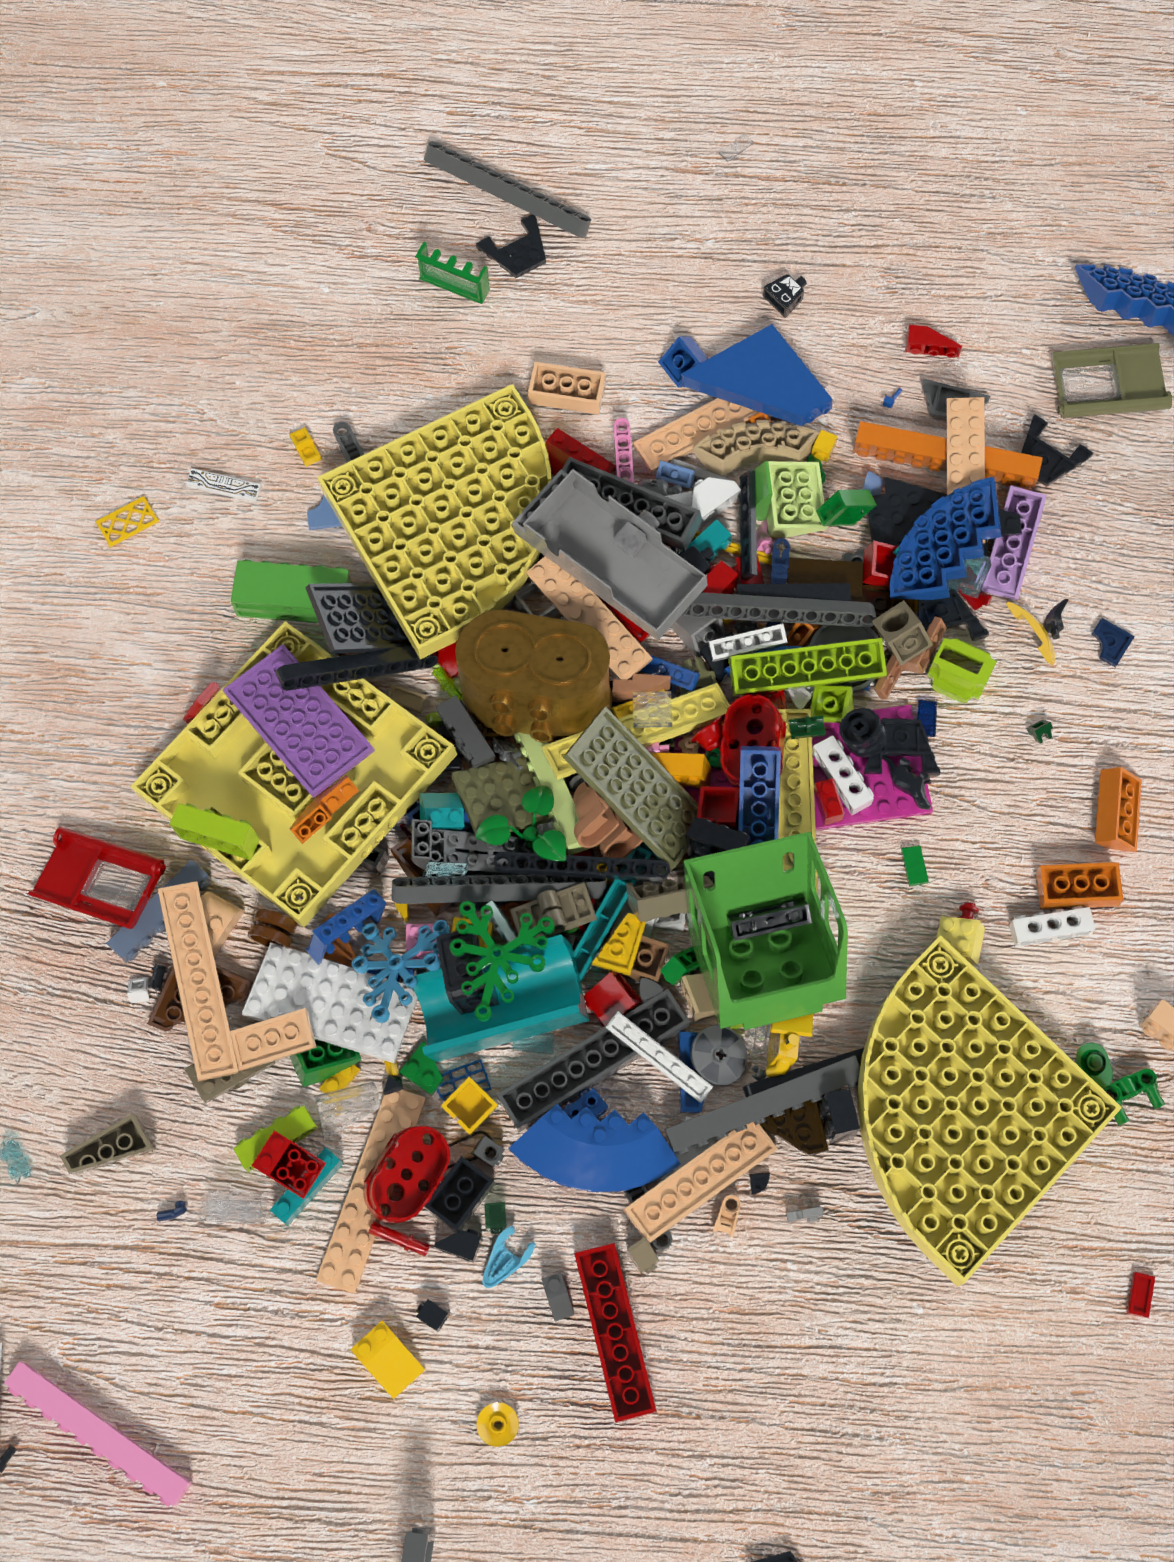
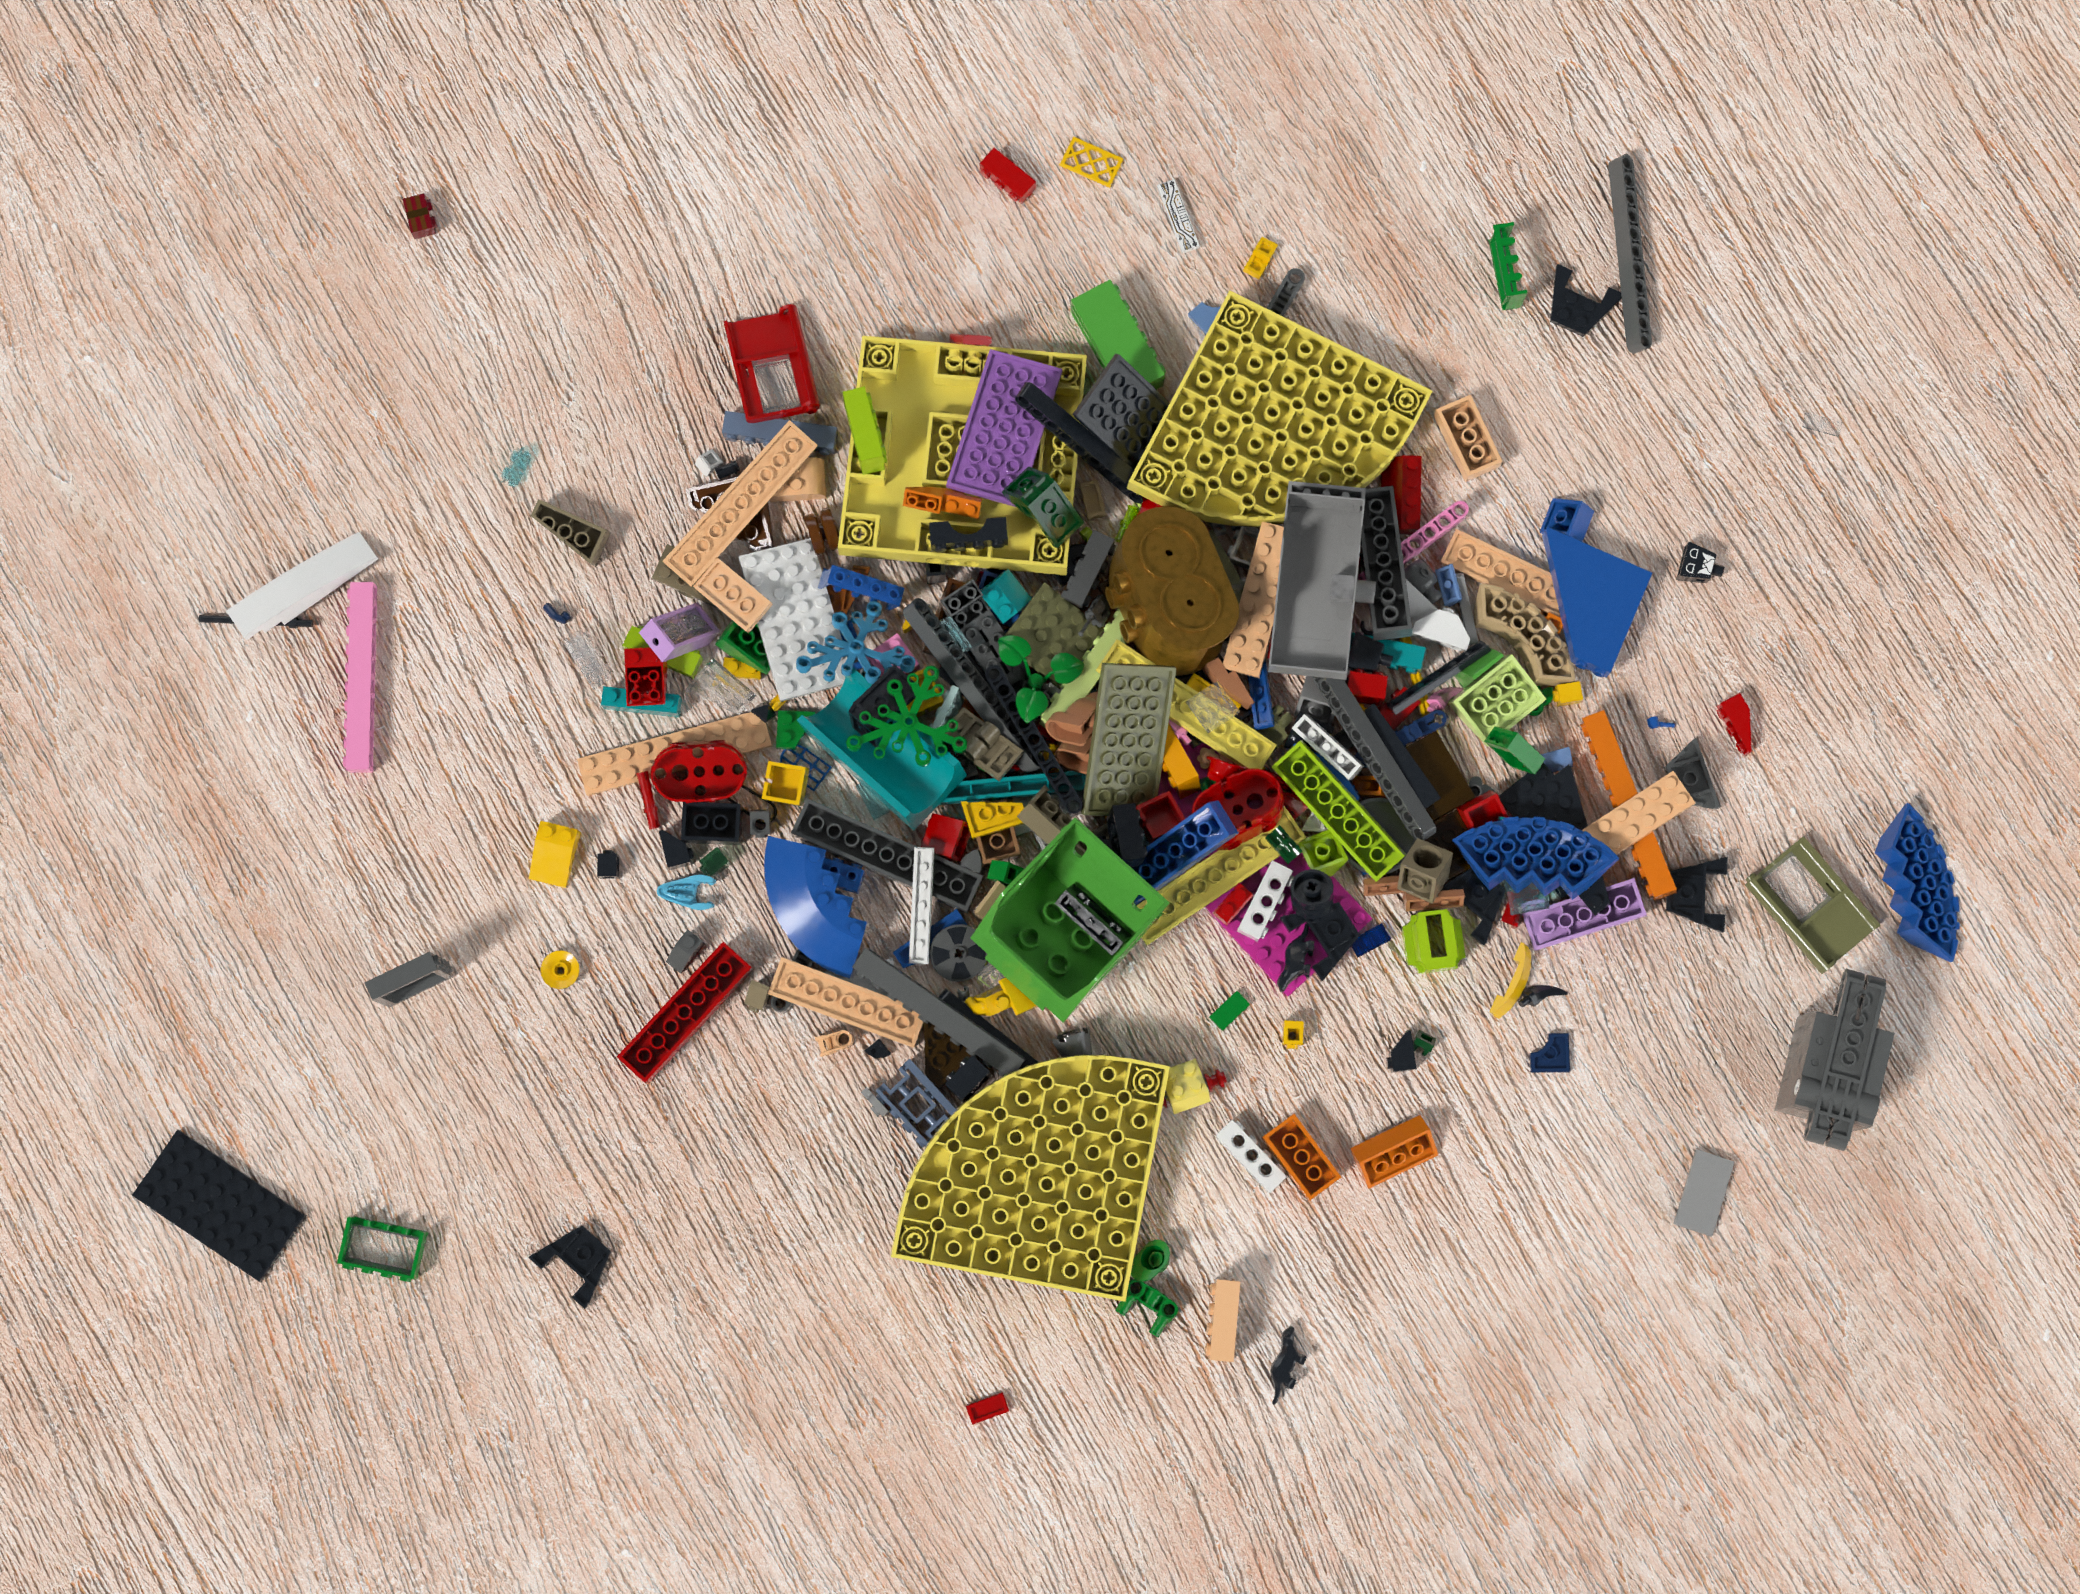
camera: 55 degrees right, 10 degrees up
(87, 590) = (1007, 176): none -> red brick
(271, 1107) = (679, 632): none -> lavender brick
(356, 824) = (944, 537): none -> black arch
(383, 722) = (1044, 501): none -> dark green bracket
(828, 1159) = (929, 1094): none -> sand blue fence
(863, 1008) = (1074, 1043): none -> dark grey cone
(968, 820) = (1296, 1027): none -> yellow brick
(1040, 752) = (1402, 1055): none -> black slope

